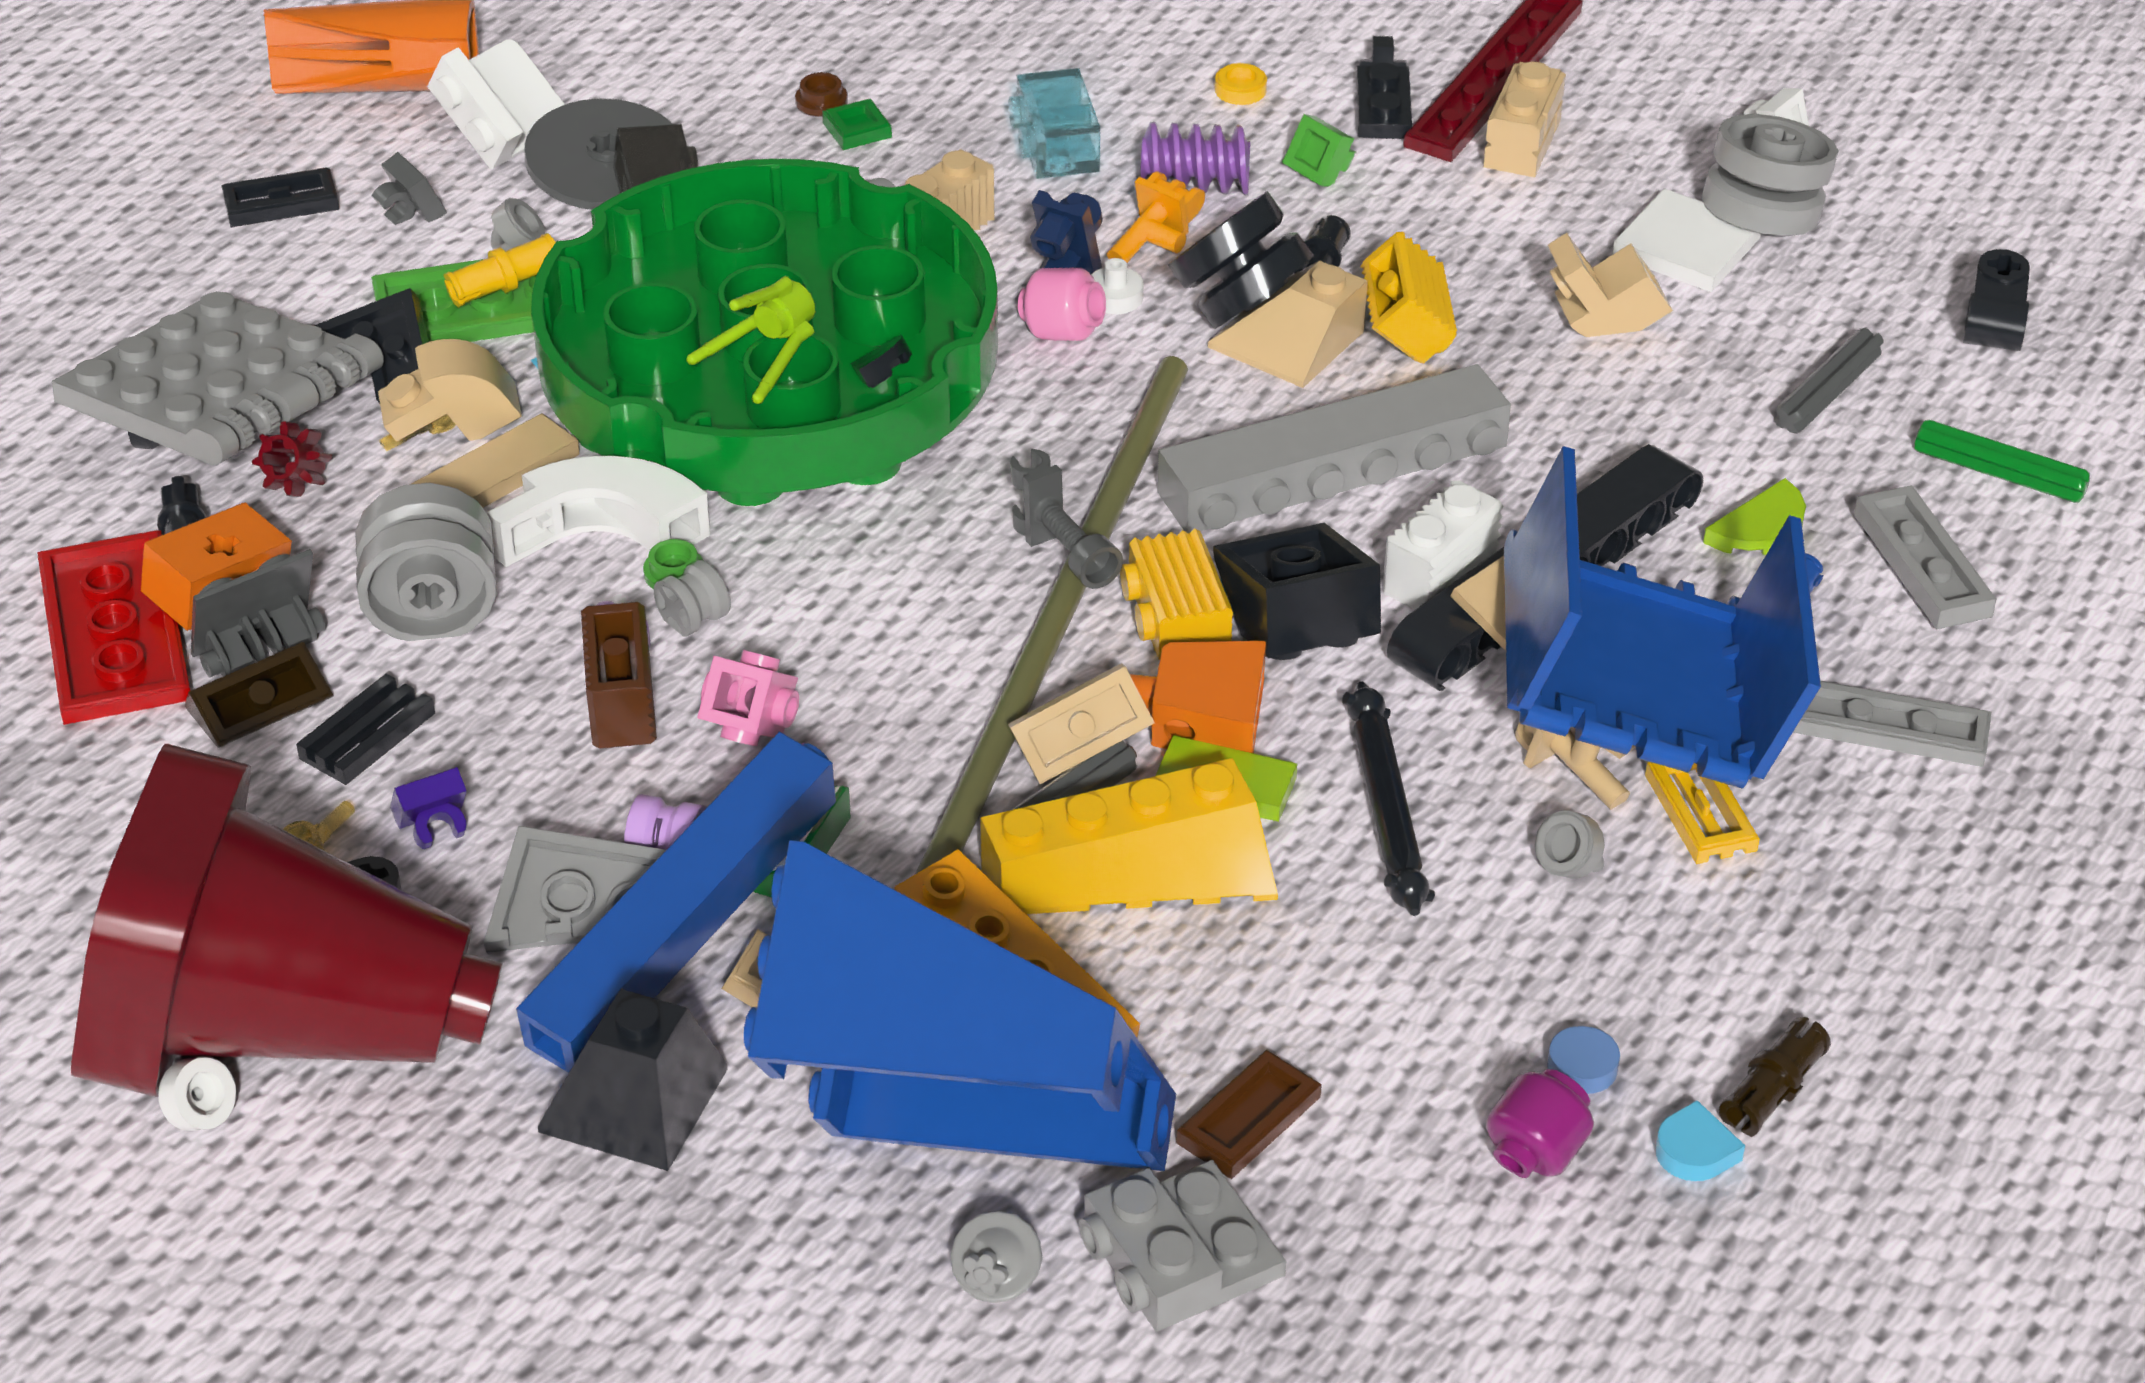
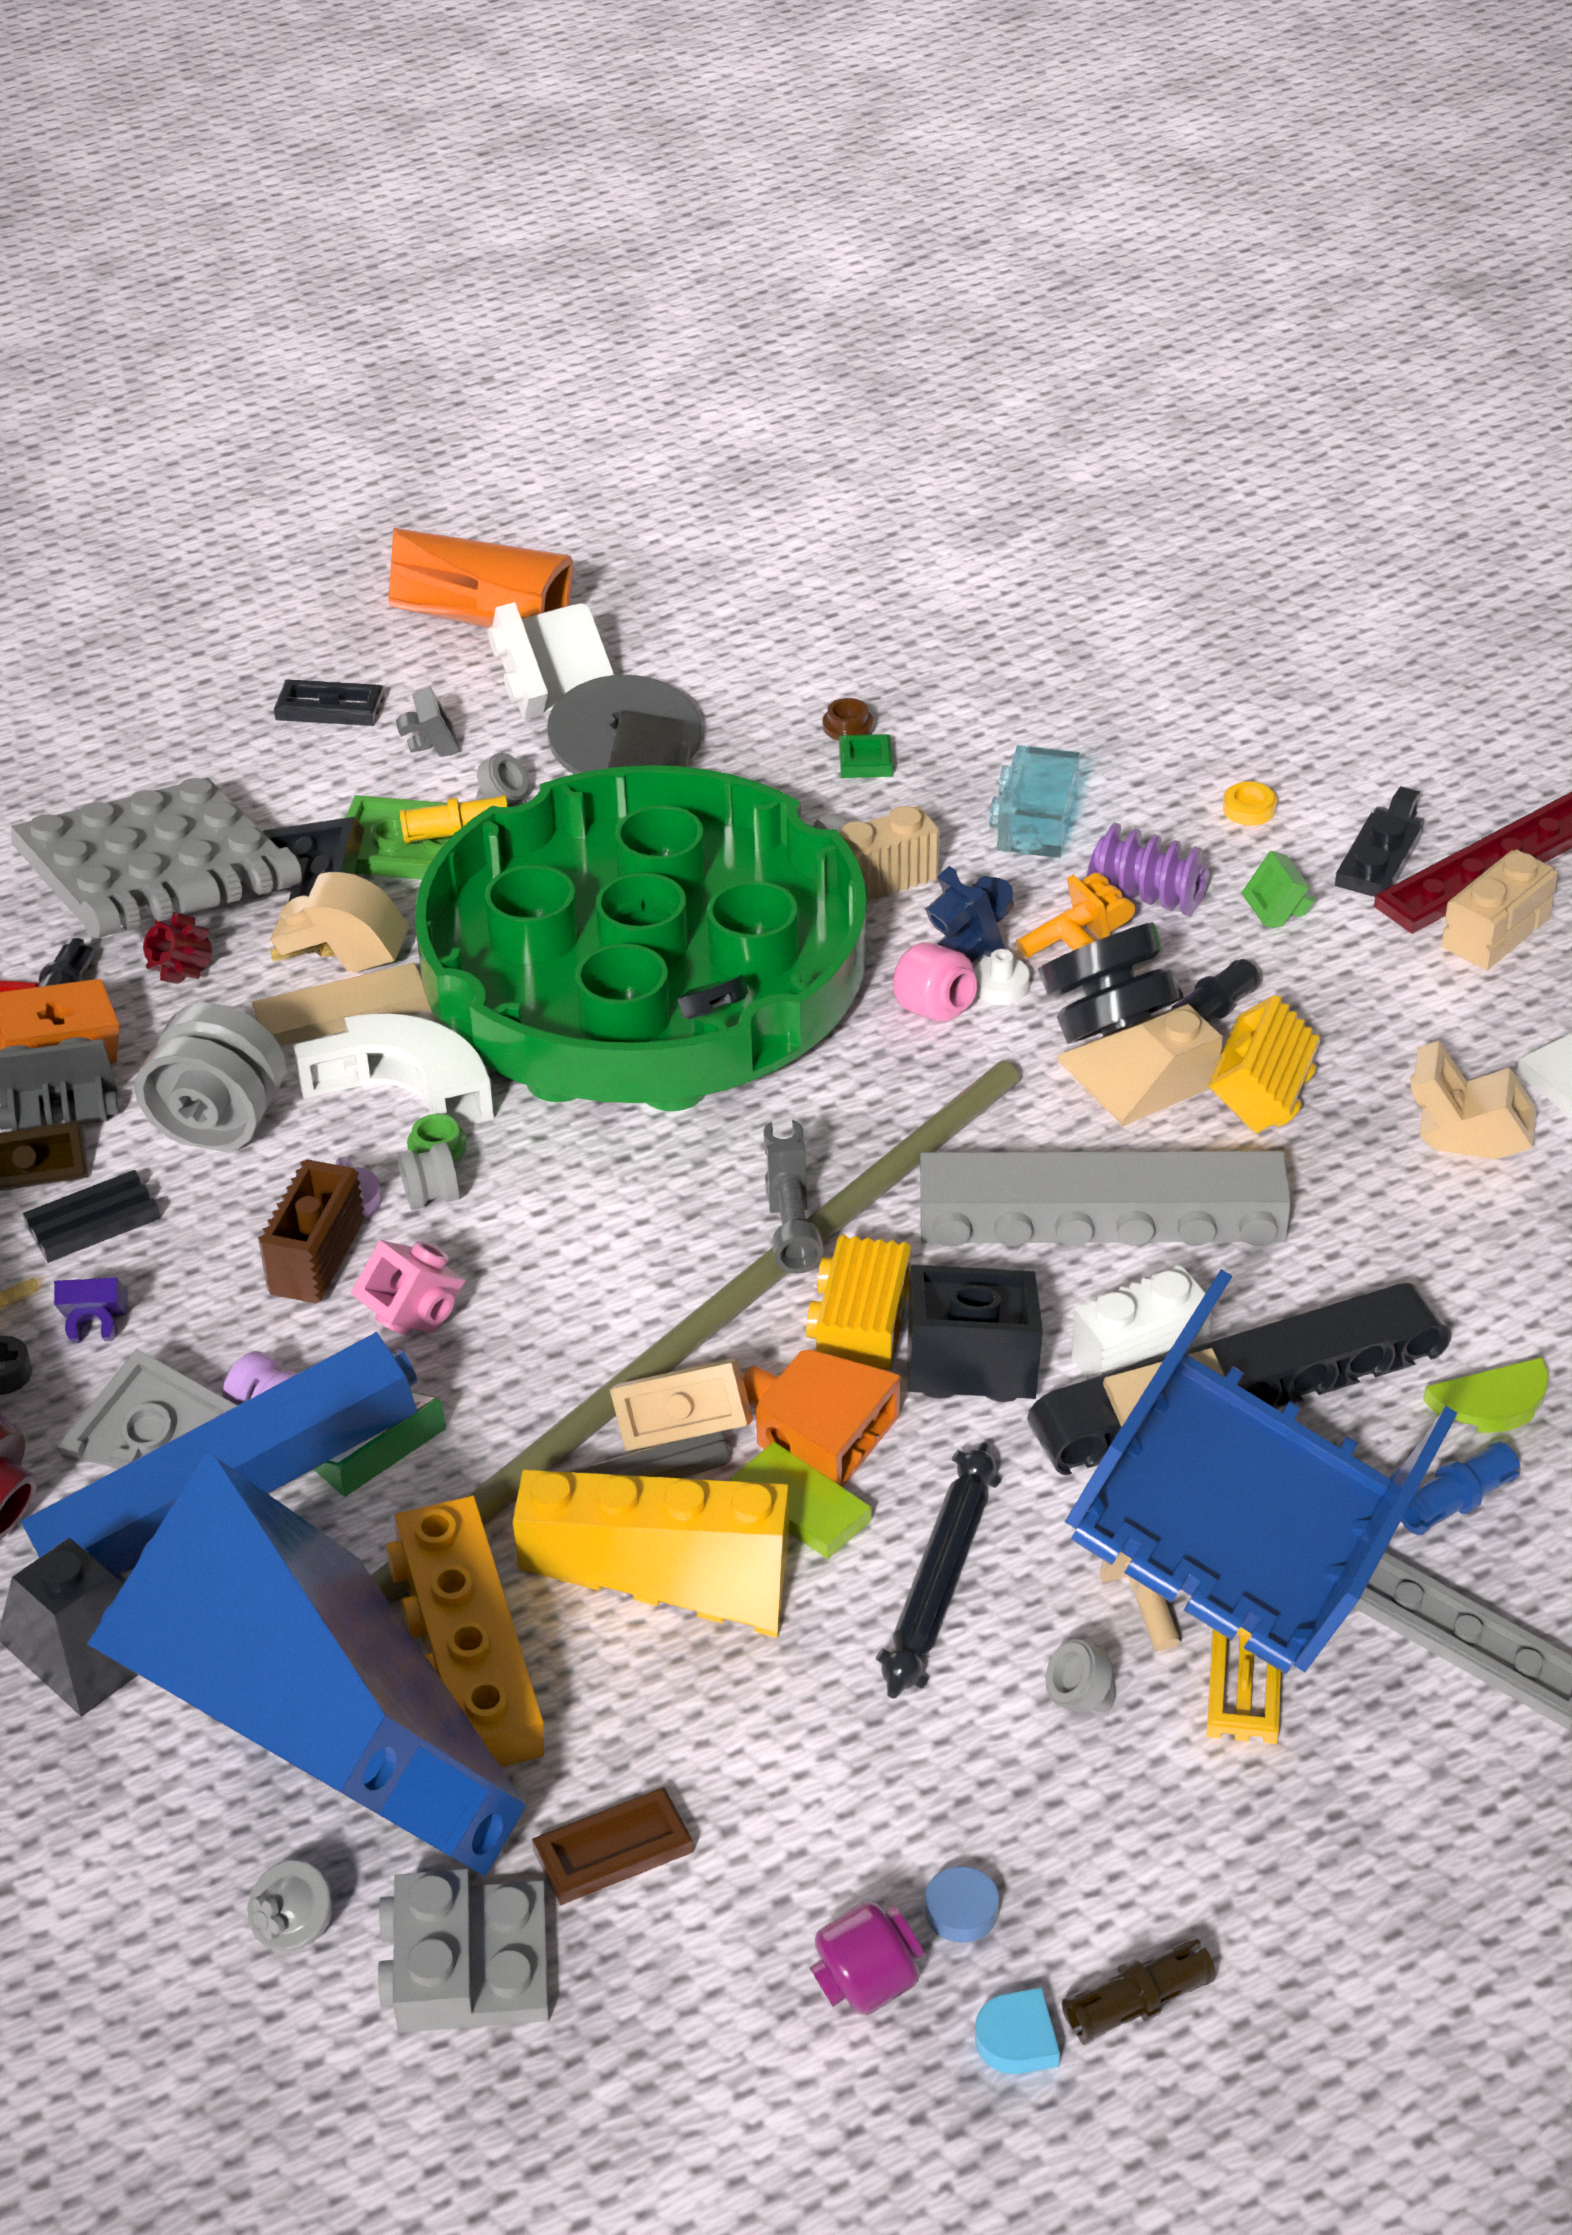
camera: 25 degrees right, 0 degrees up
(780, 312) = (629, 926): lime plant -> none

